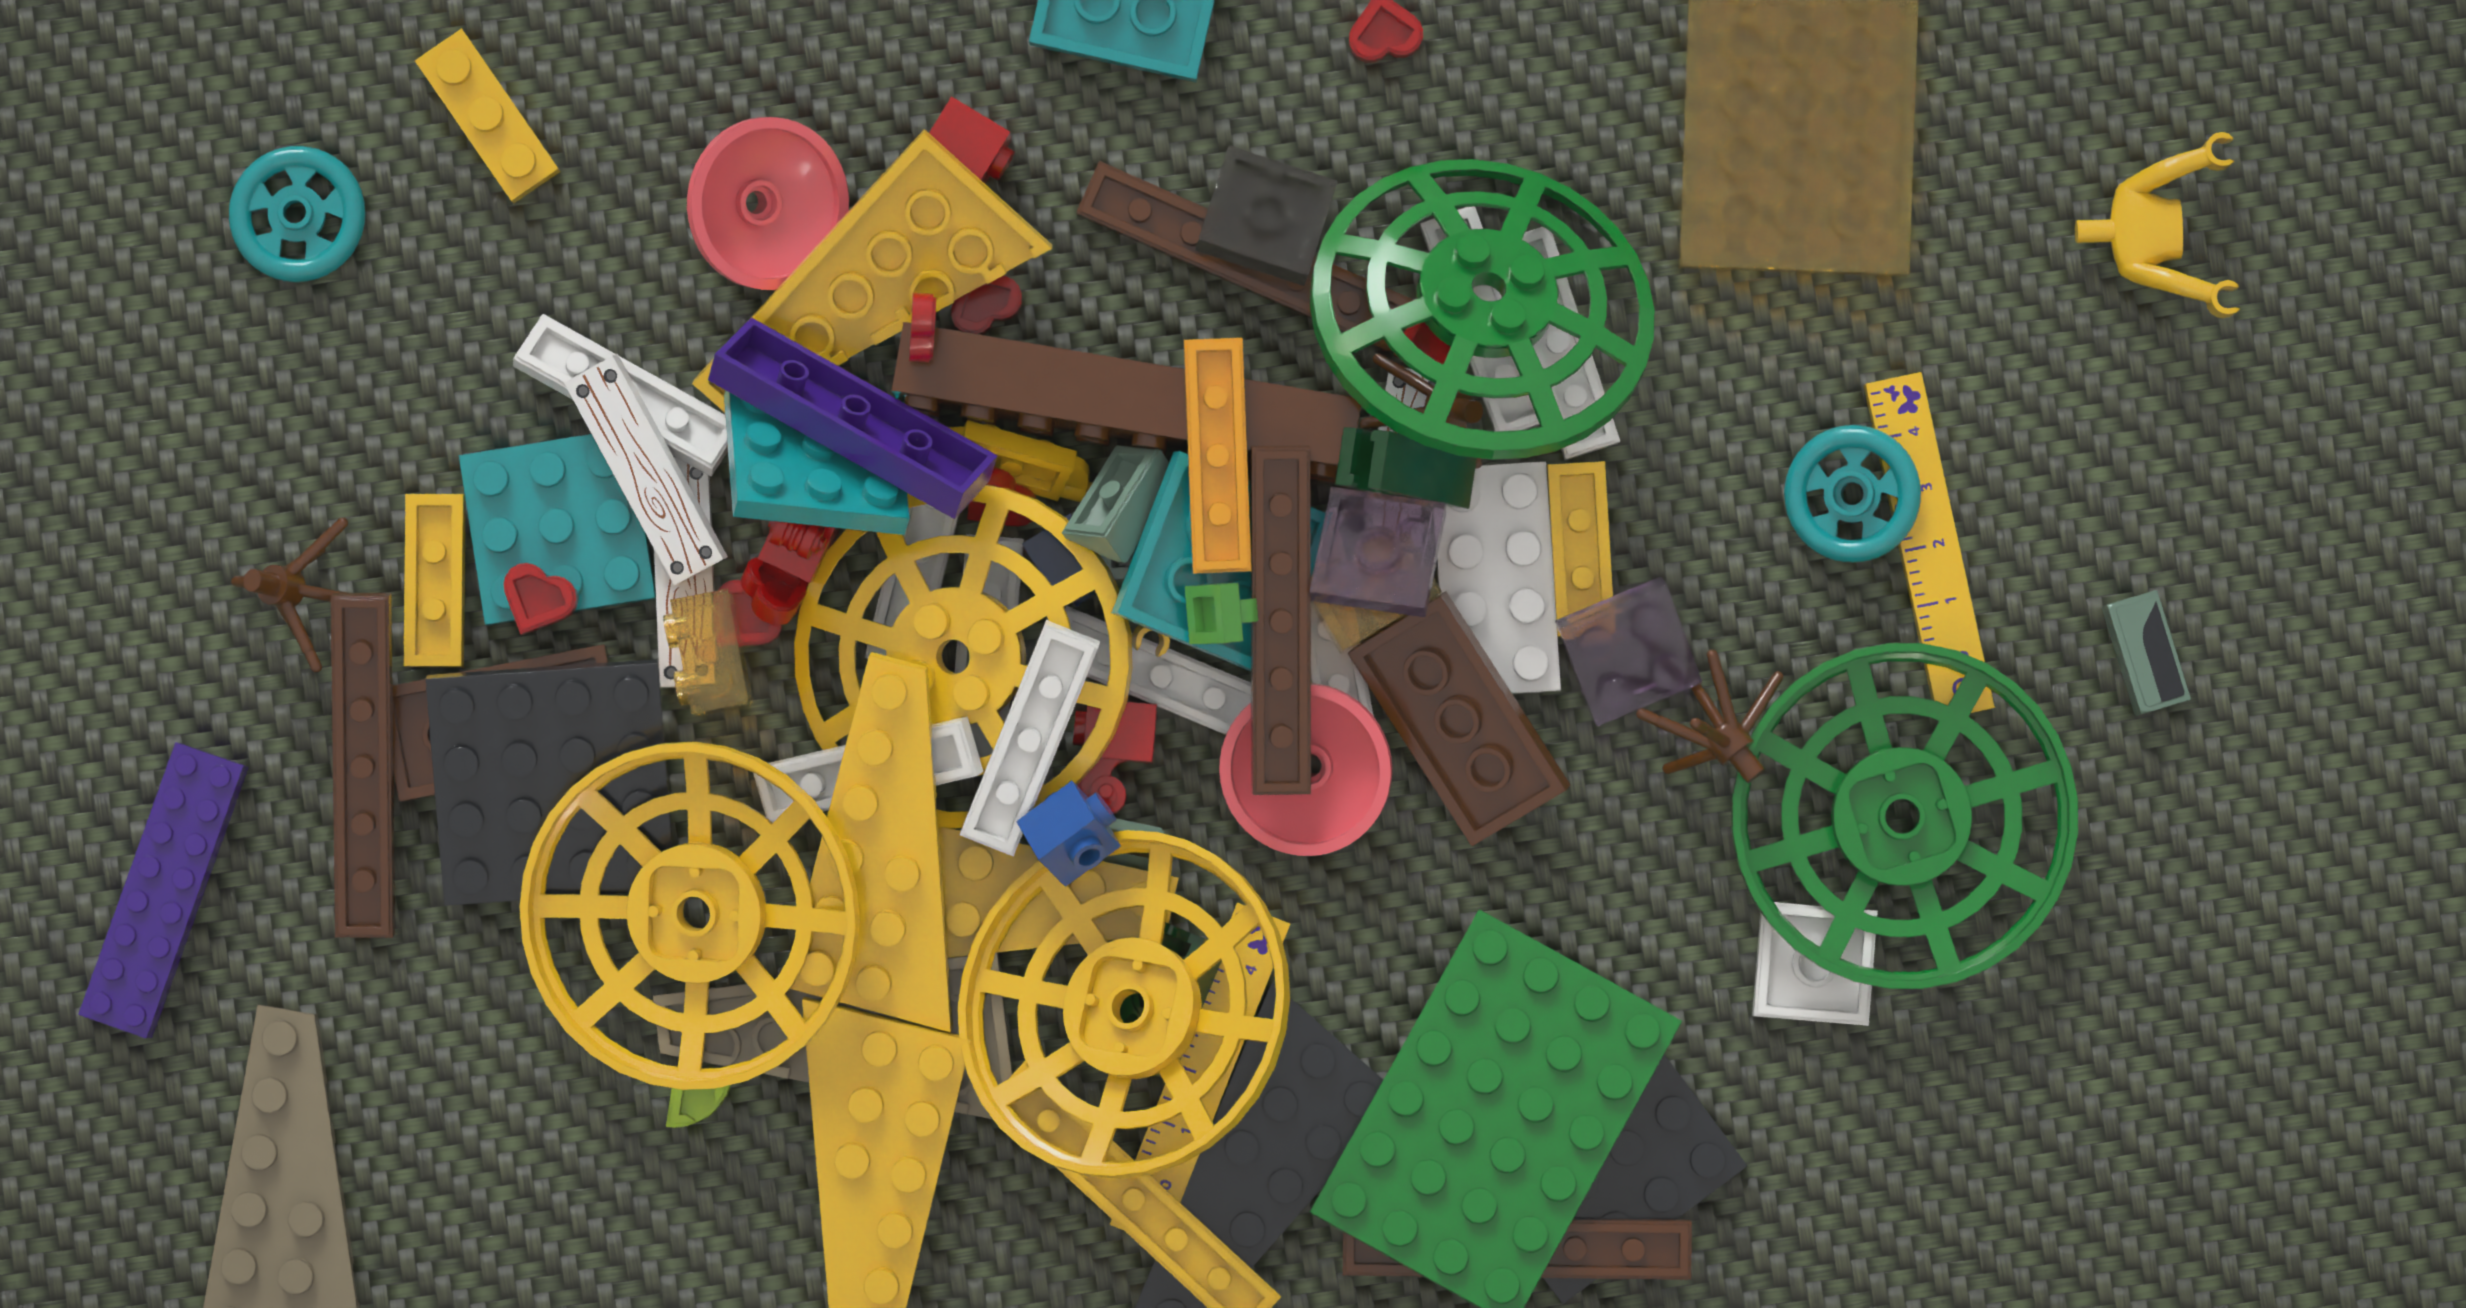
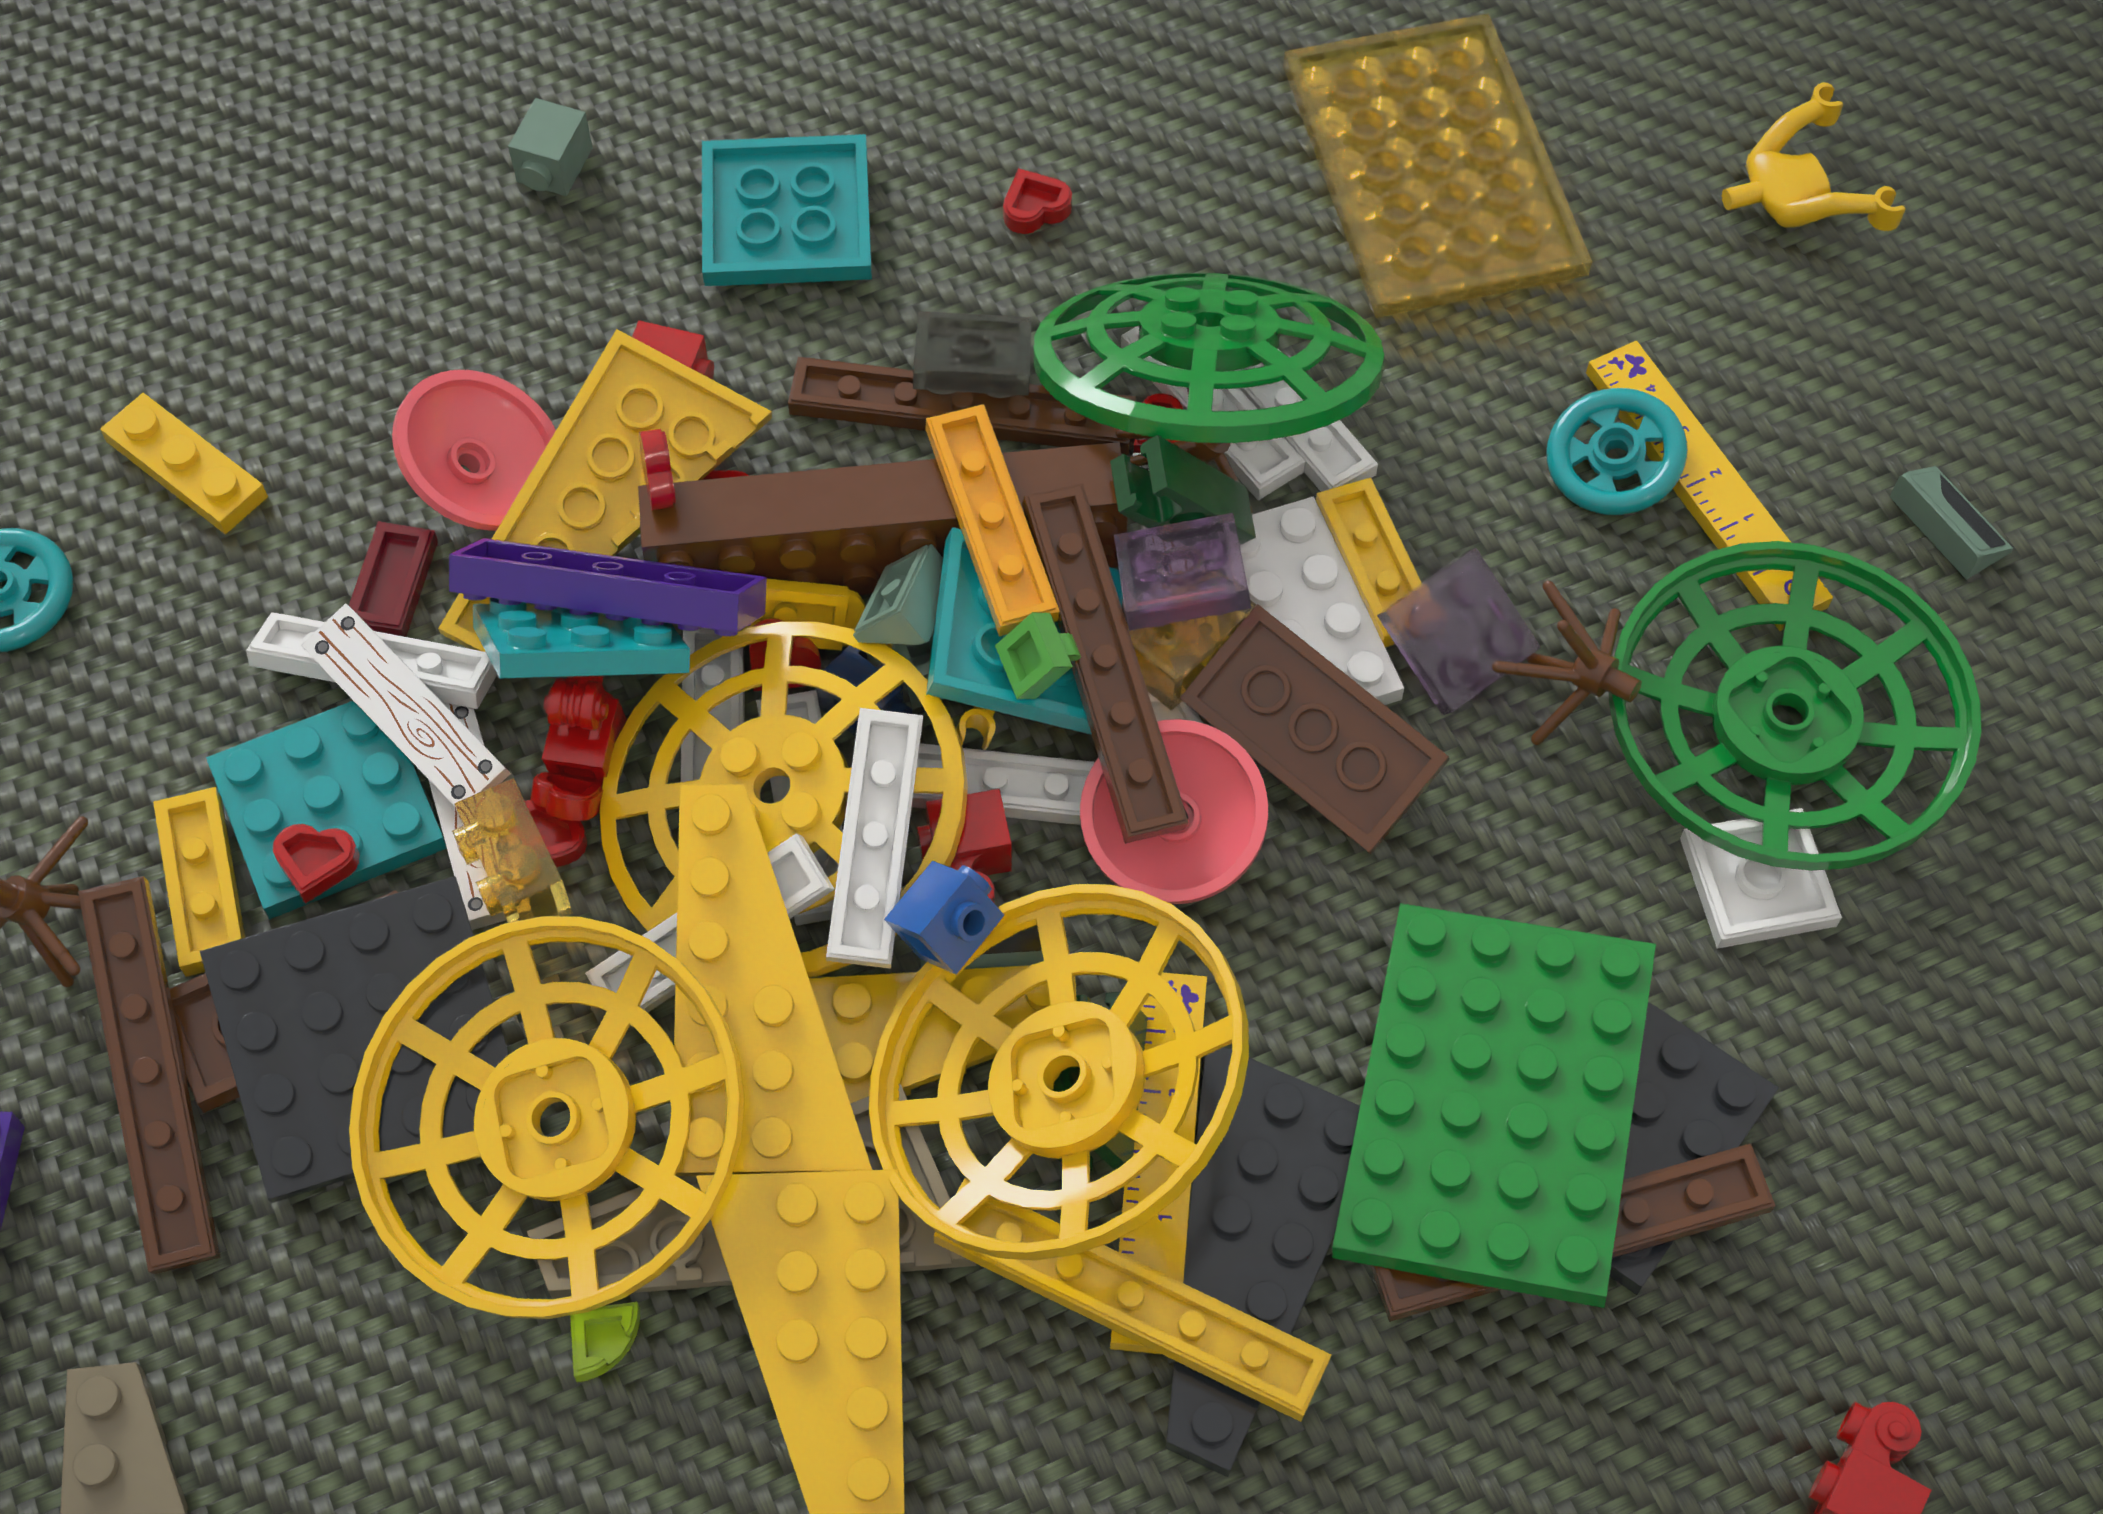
camera: 15 degrees left, 25 degrees down
(659, 304) = (393, 577): none -> dark red tile

